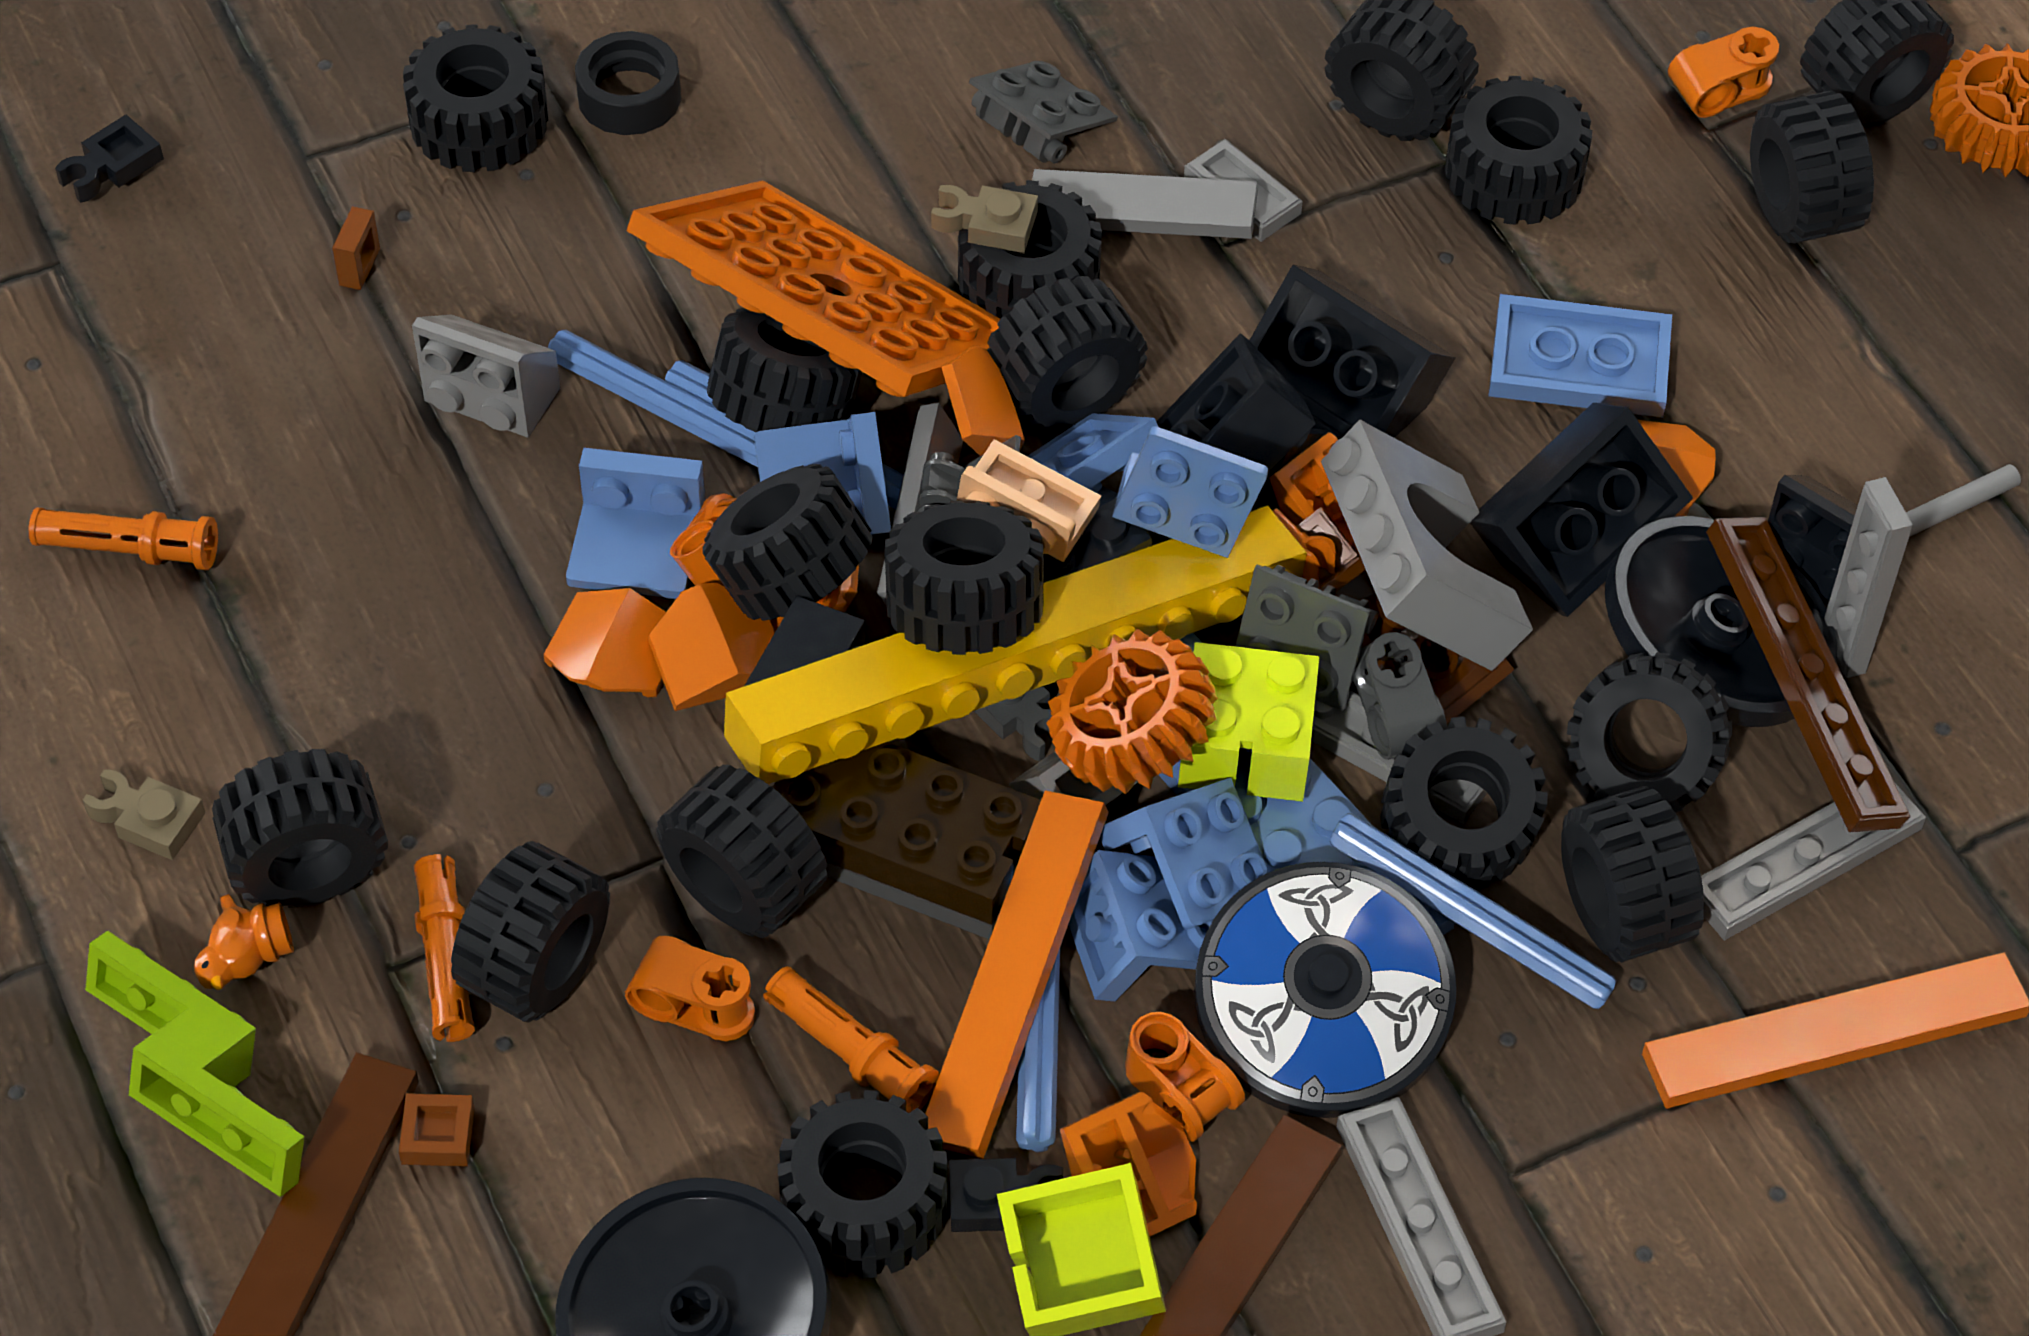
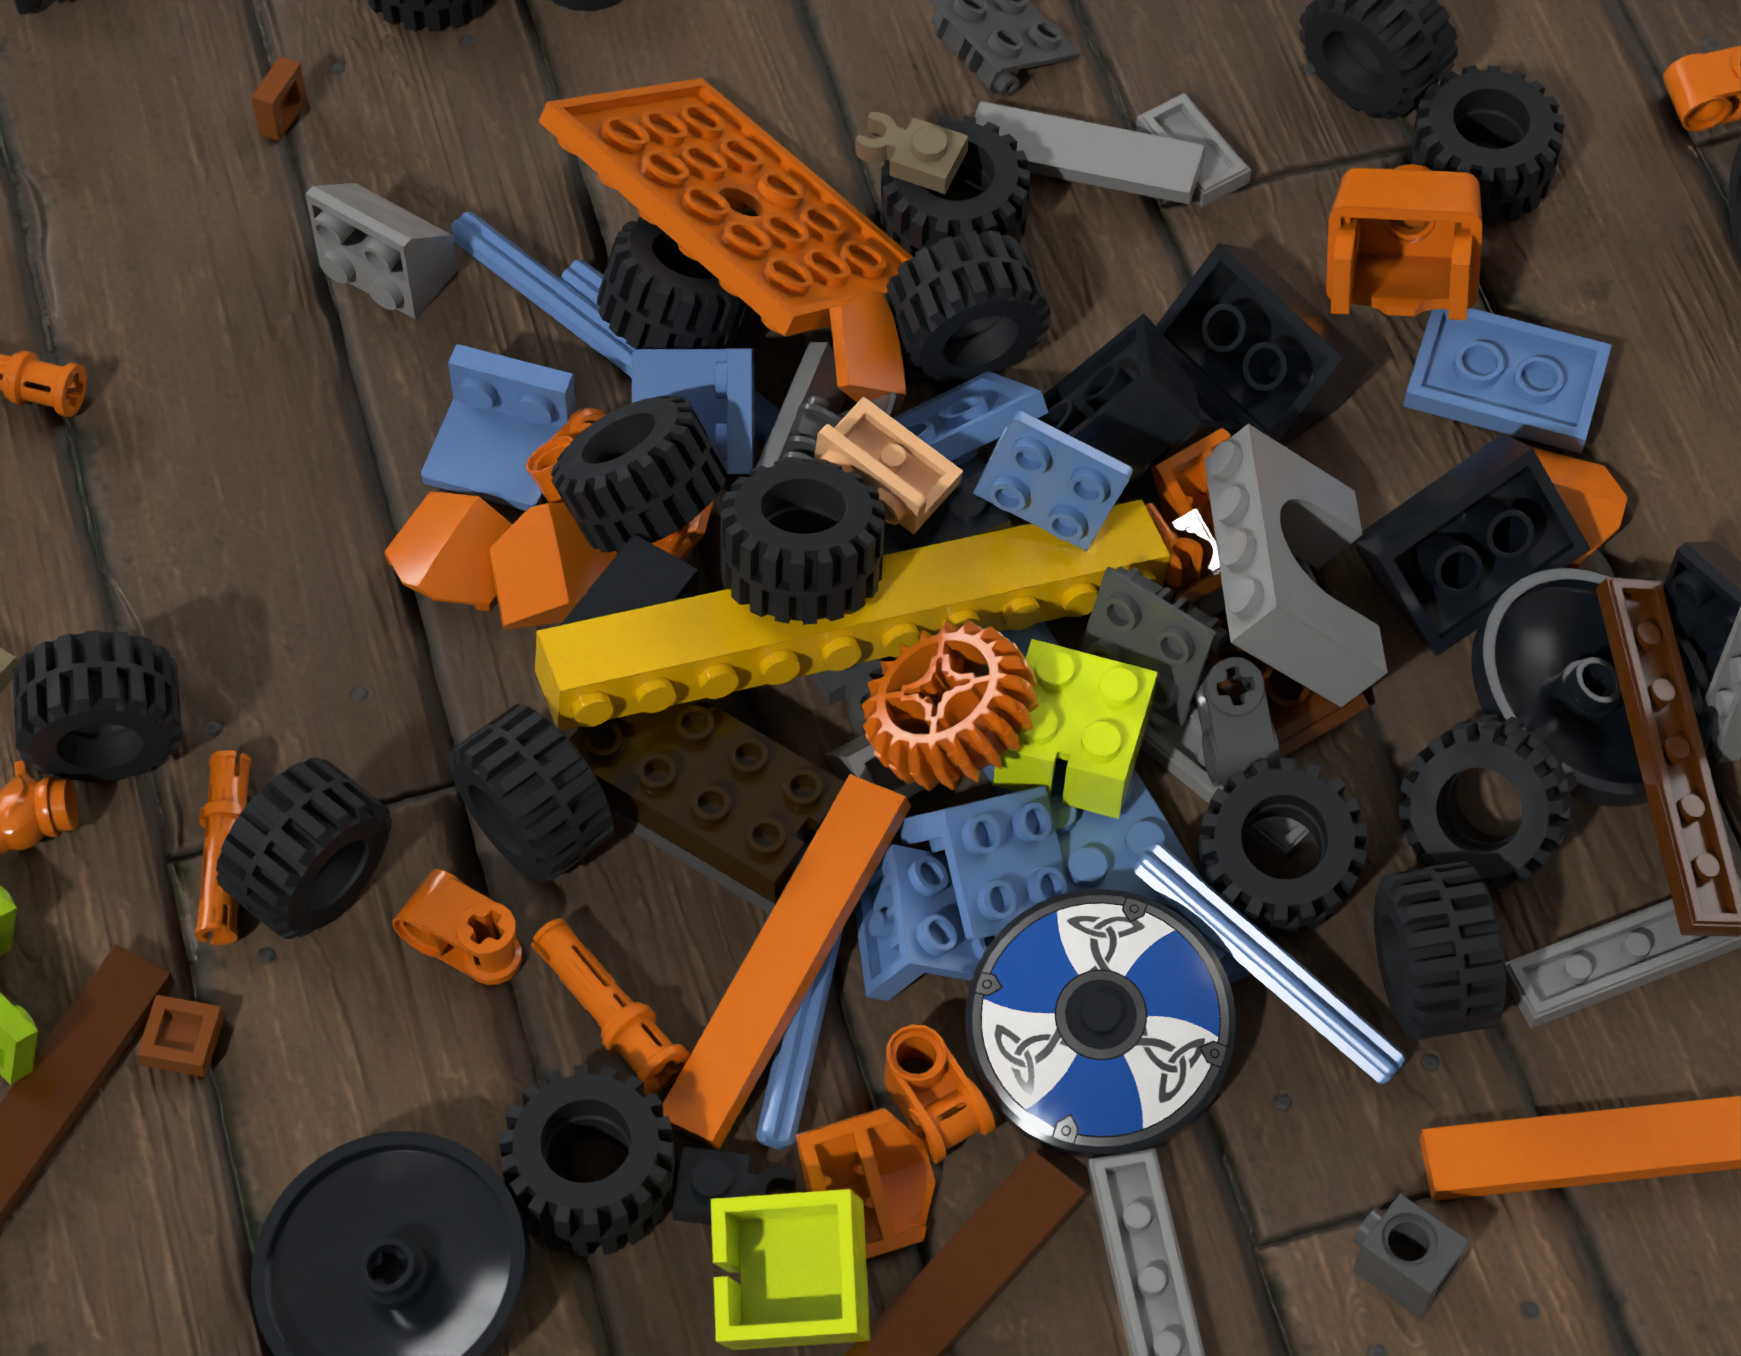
camera: 10 degrees right, 5 degrees up
(1470, 265) = (1405, 241): none -> orange piece
(1657, 1182) = (1410, 1283): none -> dark grey brick

